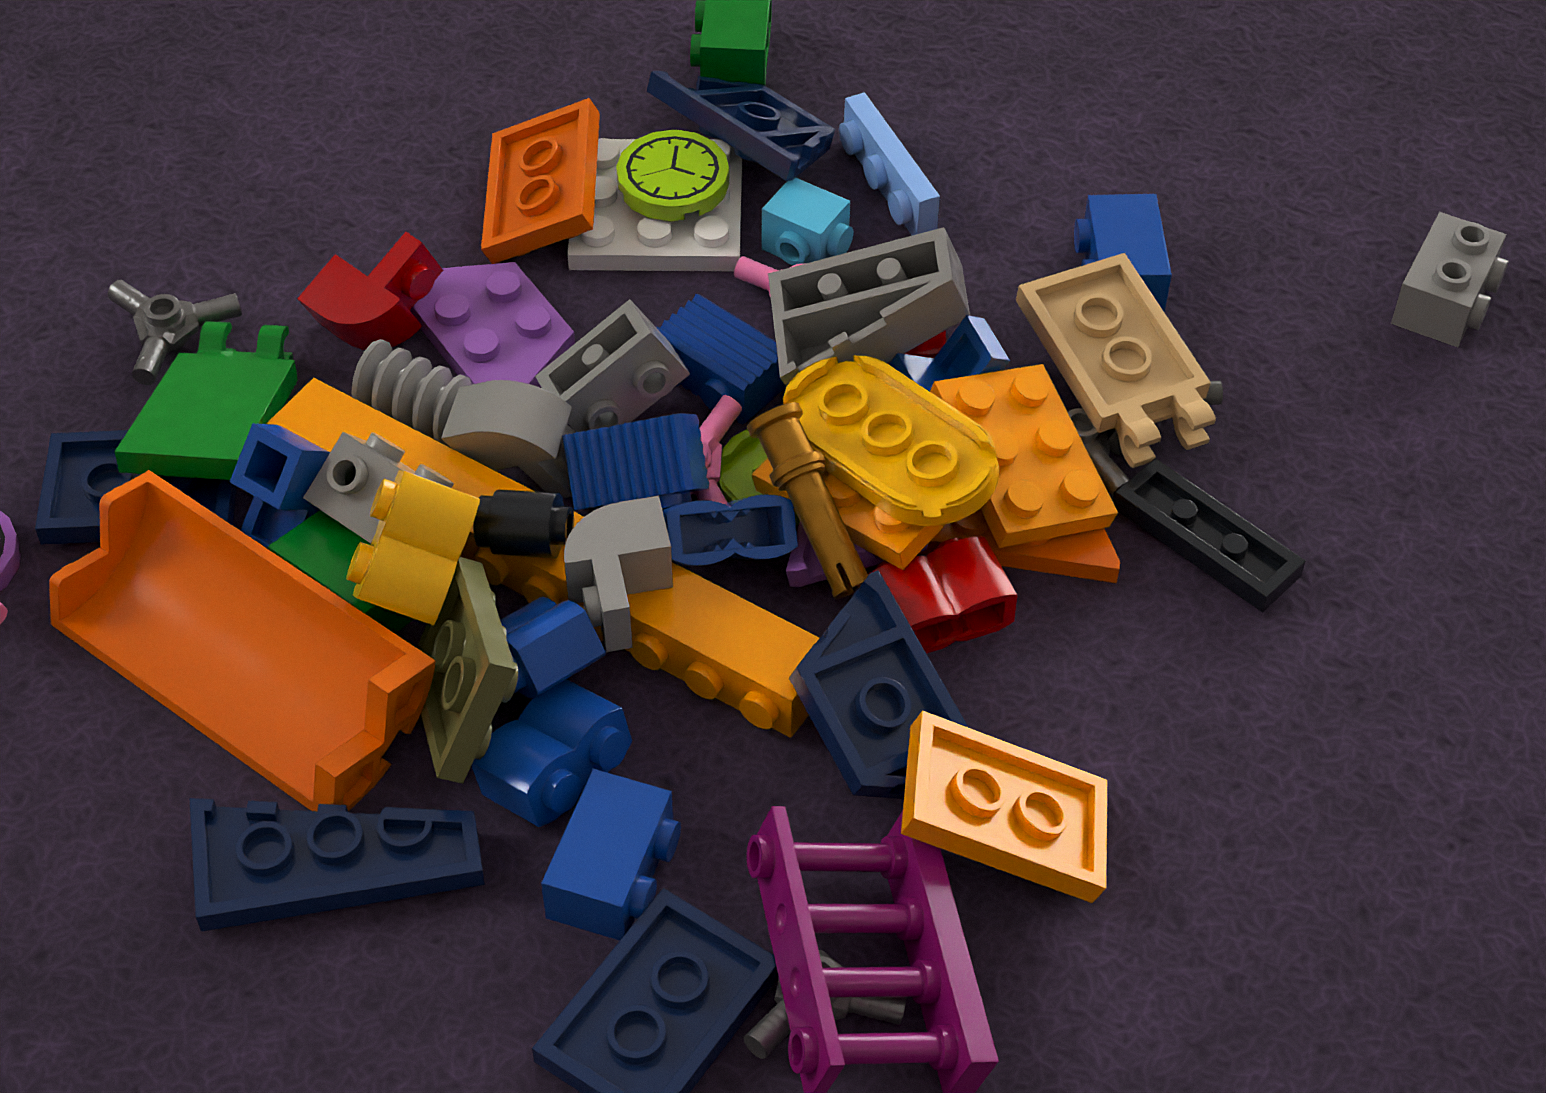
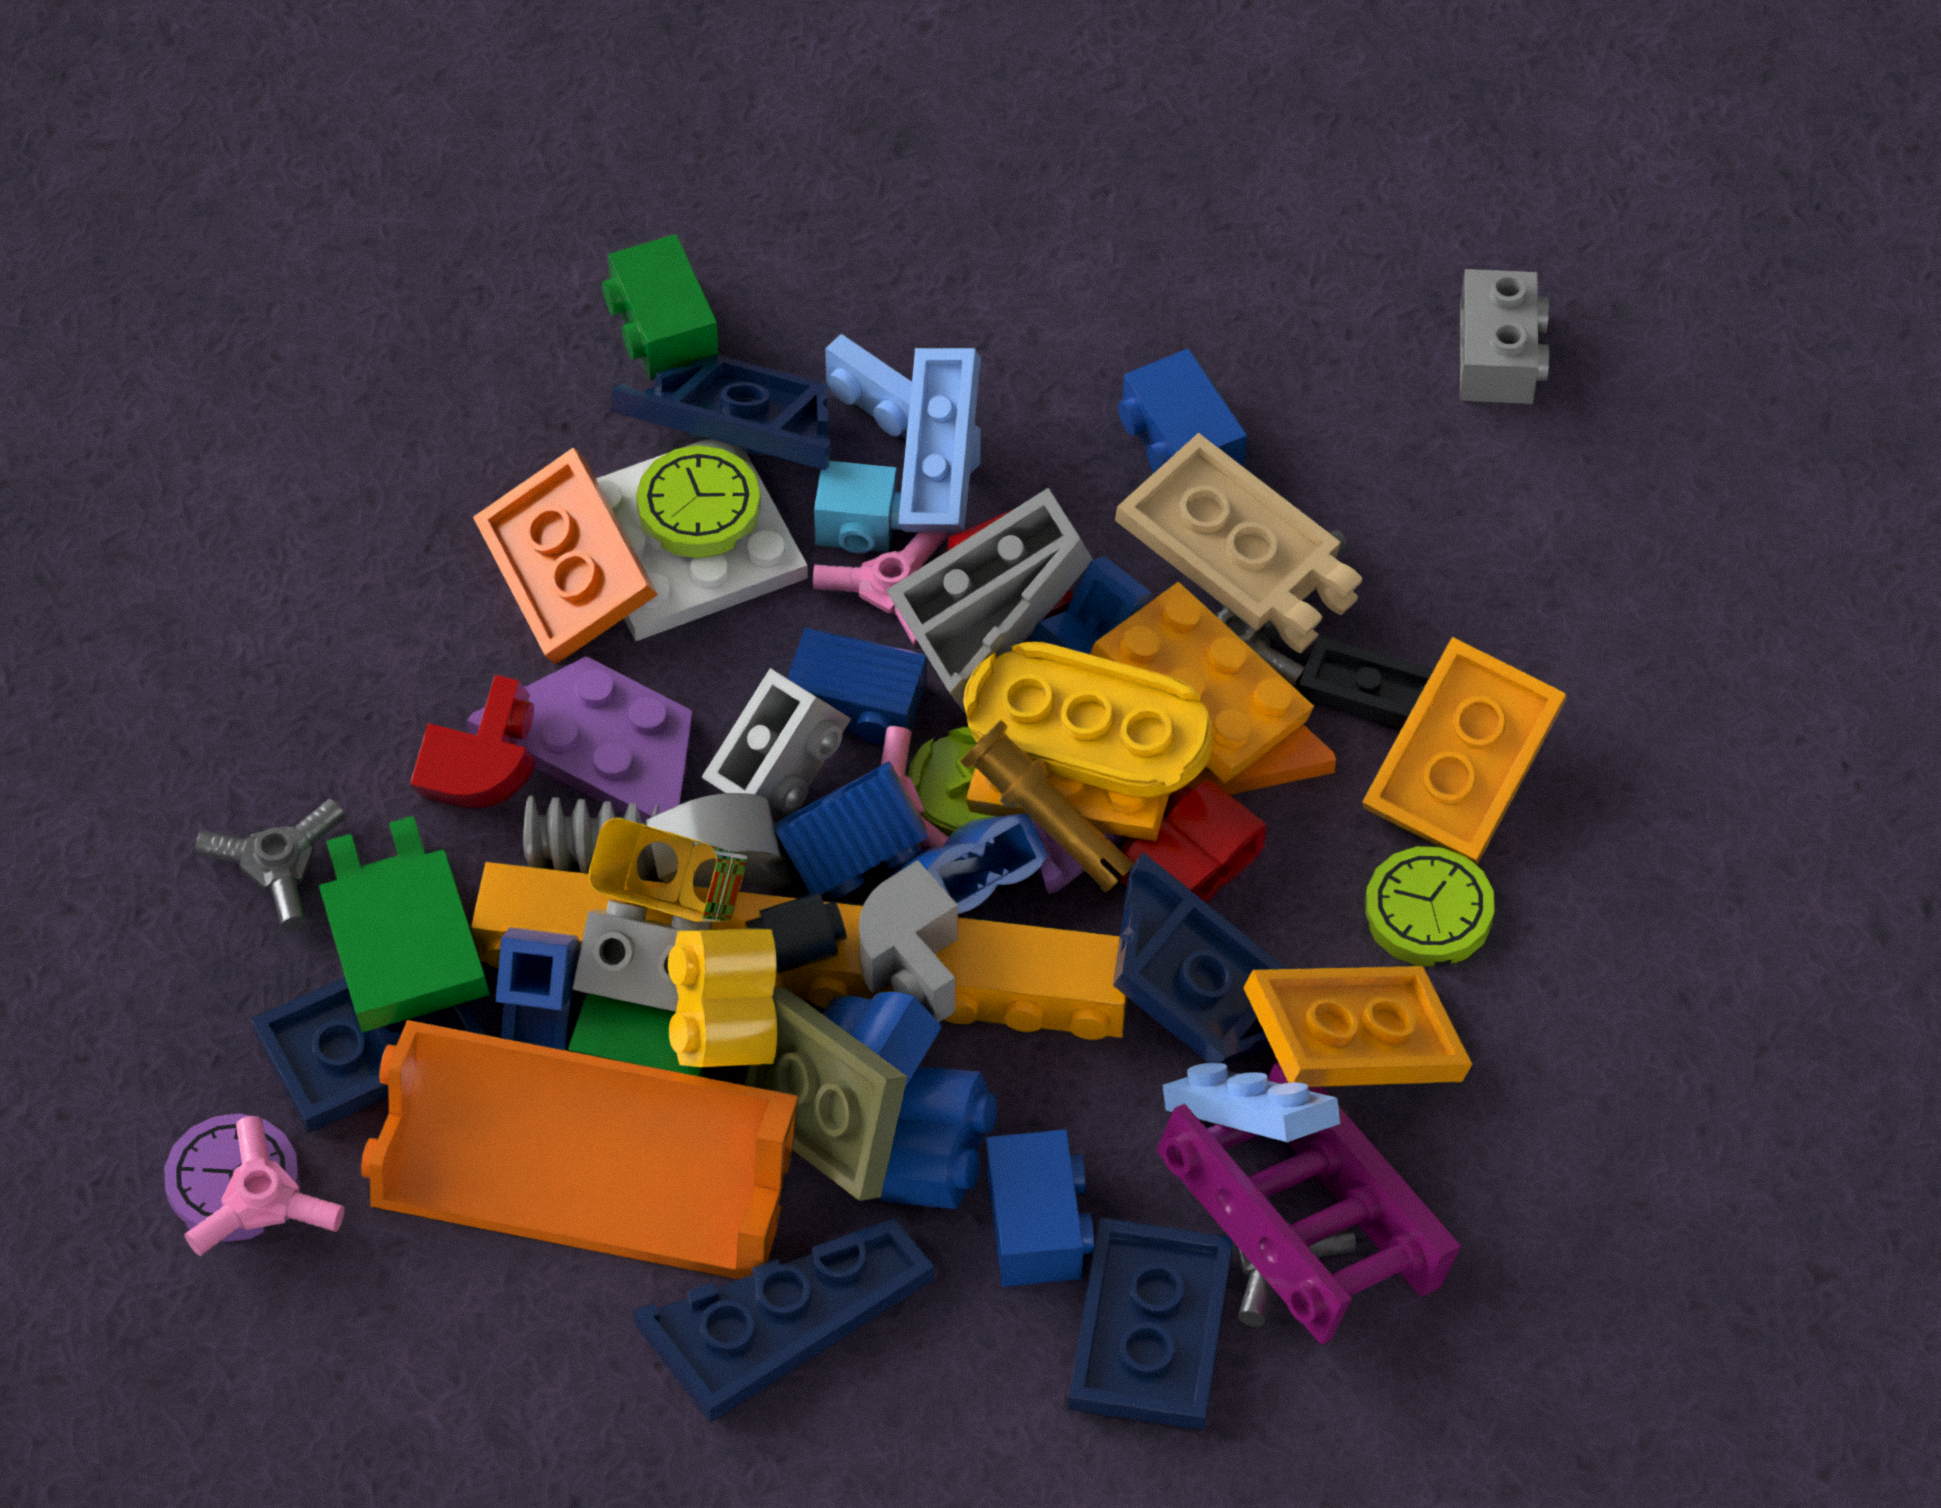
camera: 25 degrees left, 5 degrees up
(402, 409) = (616, 864): none -> yellow piece
(857, 835) = (1252, 1102): none -> light blue plate
(897, 182) = (939, 440): none -> light blue plate
(1144, 730) = (1429, 906): none -> lime tile
(1242, 600) = (1464, 750): none -> light orange plate

